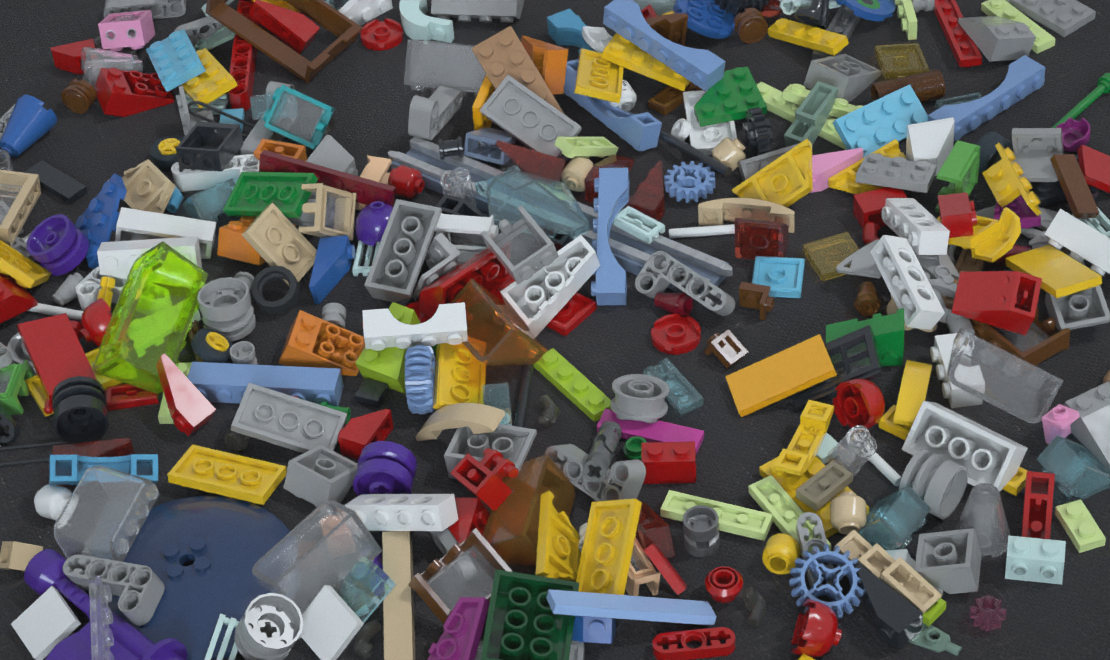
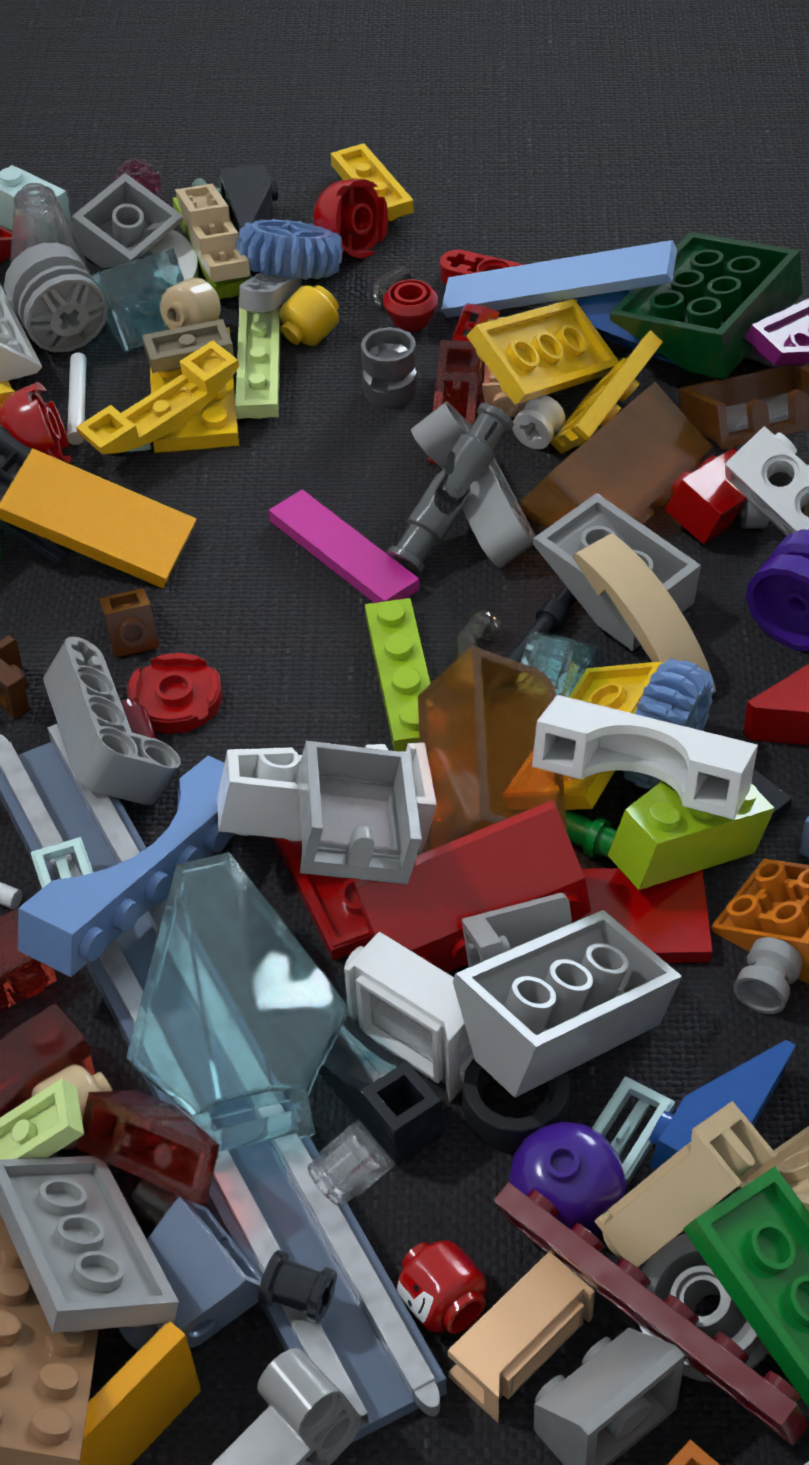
camera: 155 degrees left, 5 degrees up
(483, 482) = (660, 486): red brick -> none
(633, 448) = (384, 525): green plate -> none
(639, 398) = (351, 558): light grey wheel -> none
(669, 462) = (358, 473): red brick -> none
(681, 392) = (254, 595): clear light blue plate -> none
(731, 517) = (348, 396): yellowish green plate -> none
(853, 452) = (100, 387): clear piece -> none

